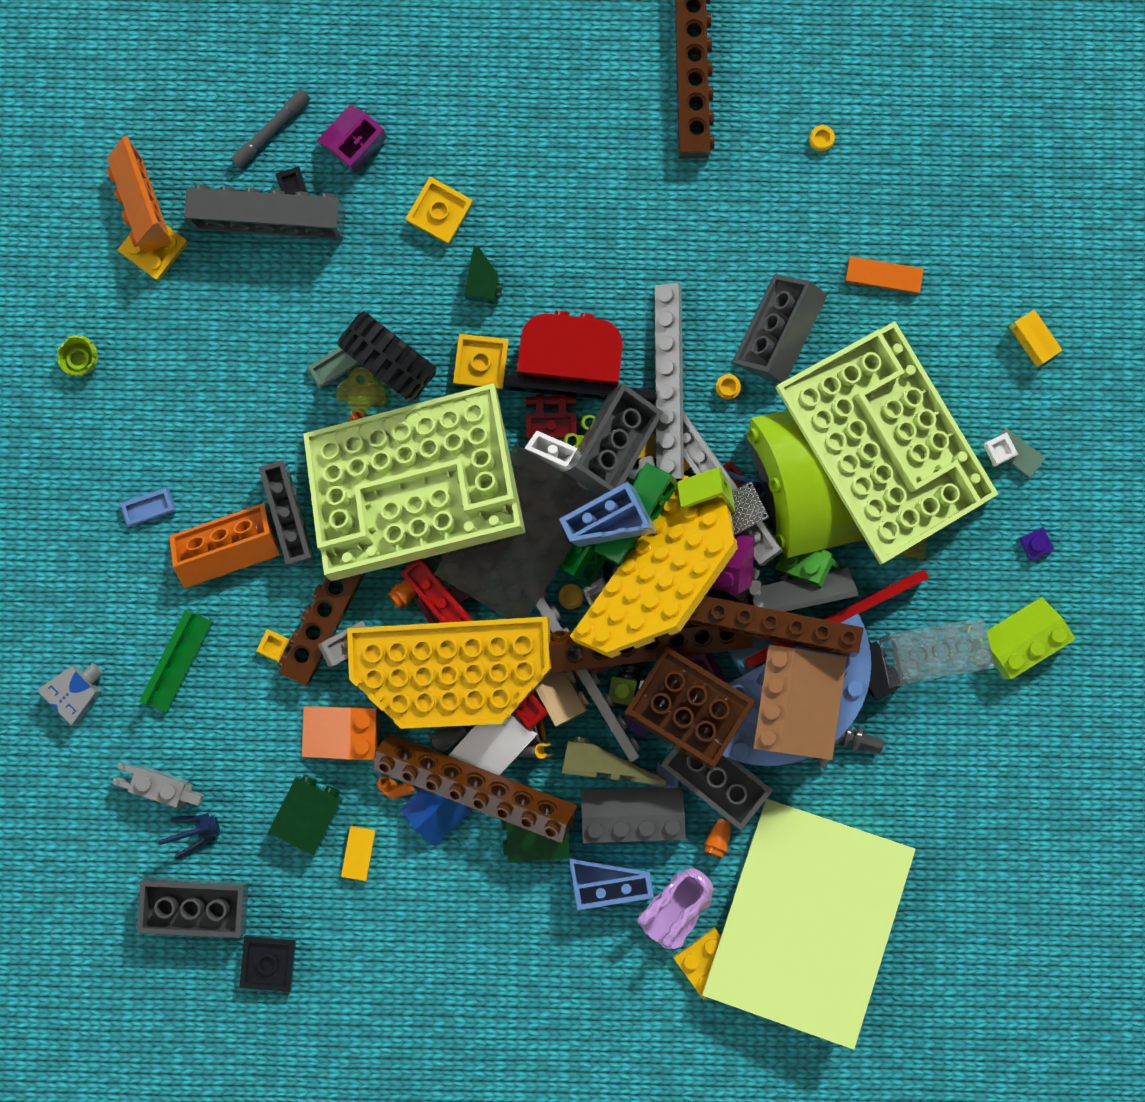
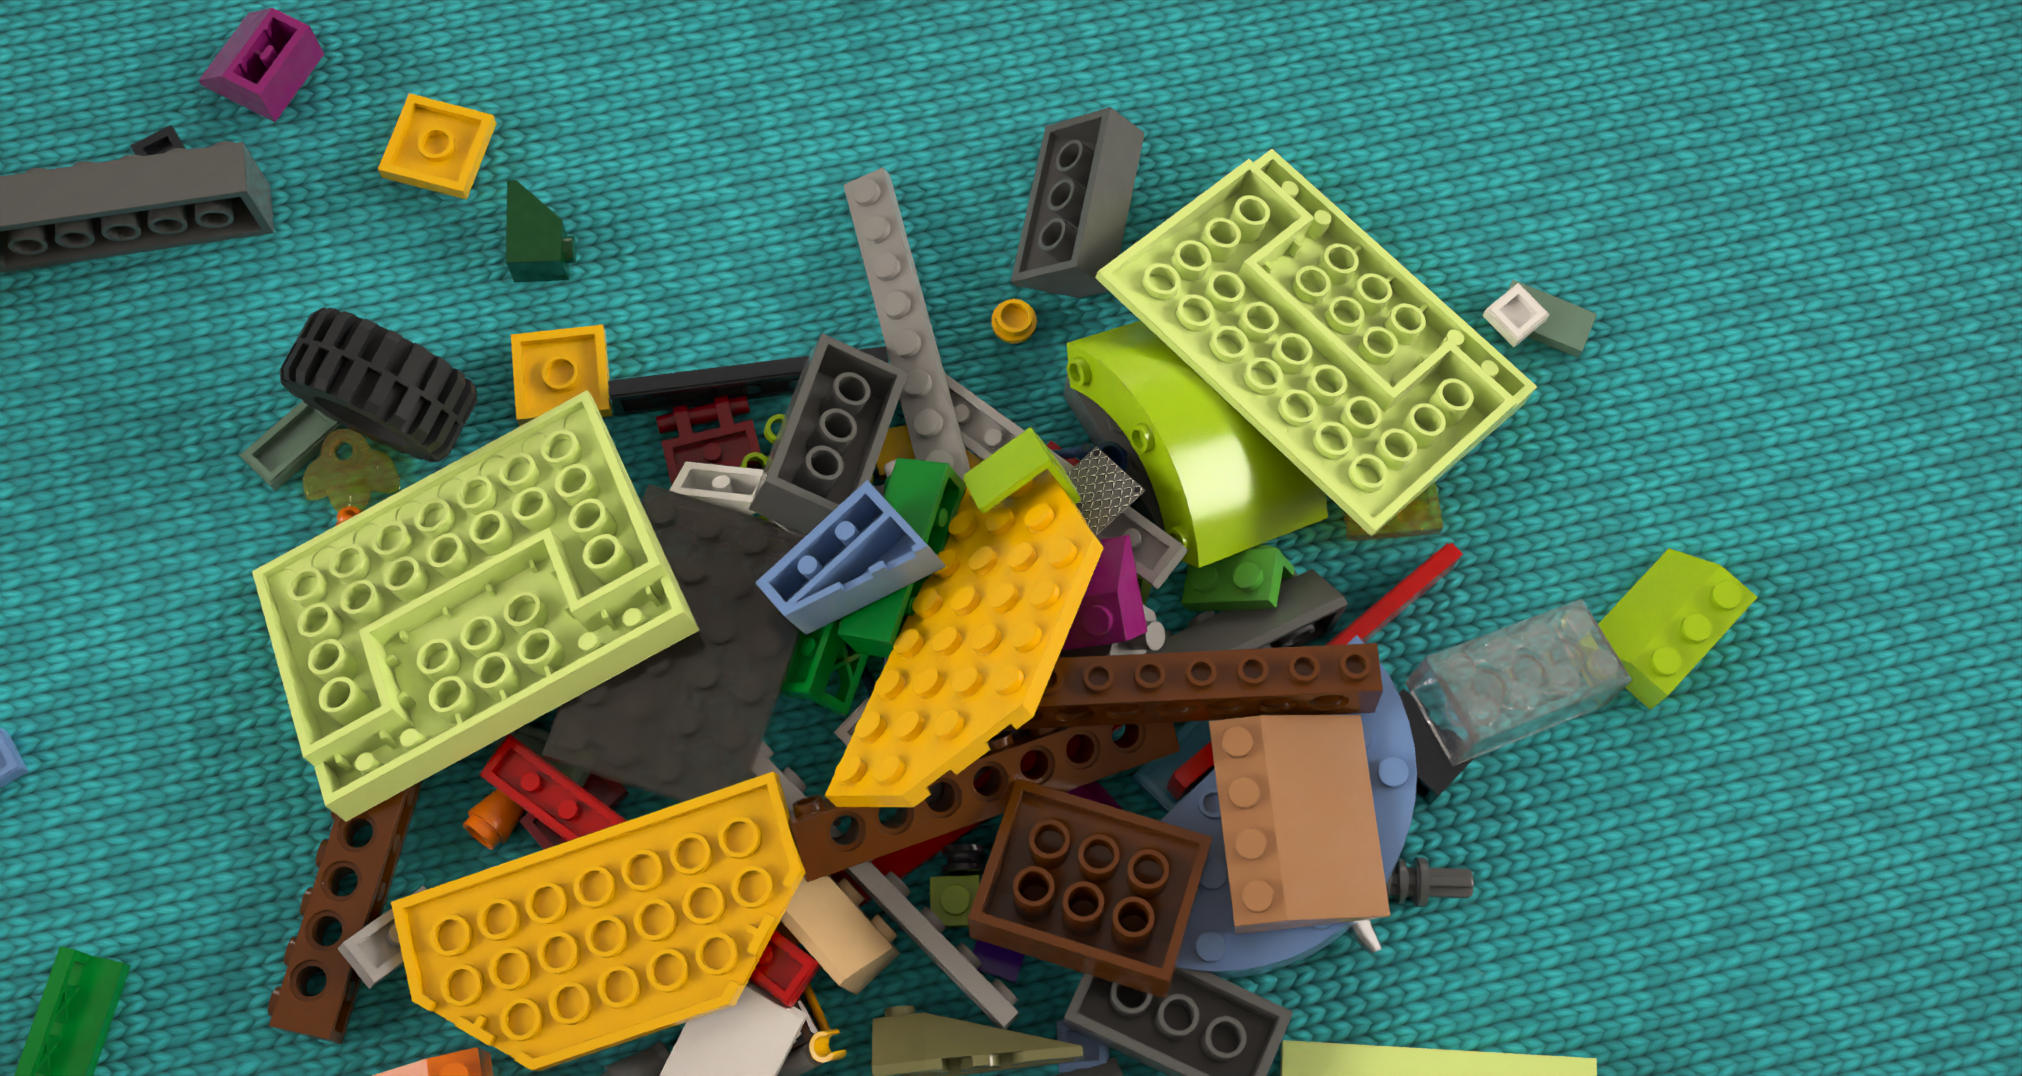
camera: 20 degrees left, 15 degrees down
(223, 546) = (126, 813): orange slope -> none
(250, 148) = (81, 119): dark grey piece -> none
(273, 645) = (253, 979): yellow tile -> none
(286, 513) = (240, 718): dark grey brick -> none
(570, 349) = (715, 307): red brick -> none
(571, 596) = (817, 749): yellow plate -> none
(884, 275) = (1231, 88): orange tile -> none
(1035, 338) = (1513, 132): yellow panel -> none
(1036, 543) = (1628, 460): dark purple plate -> none

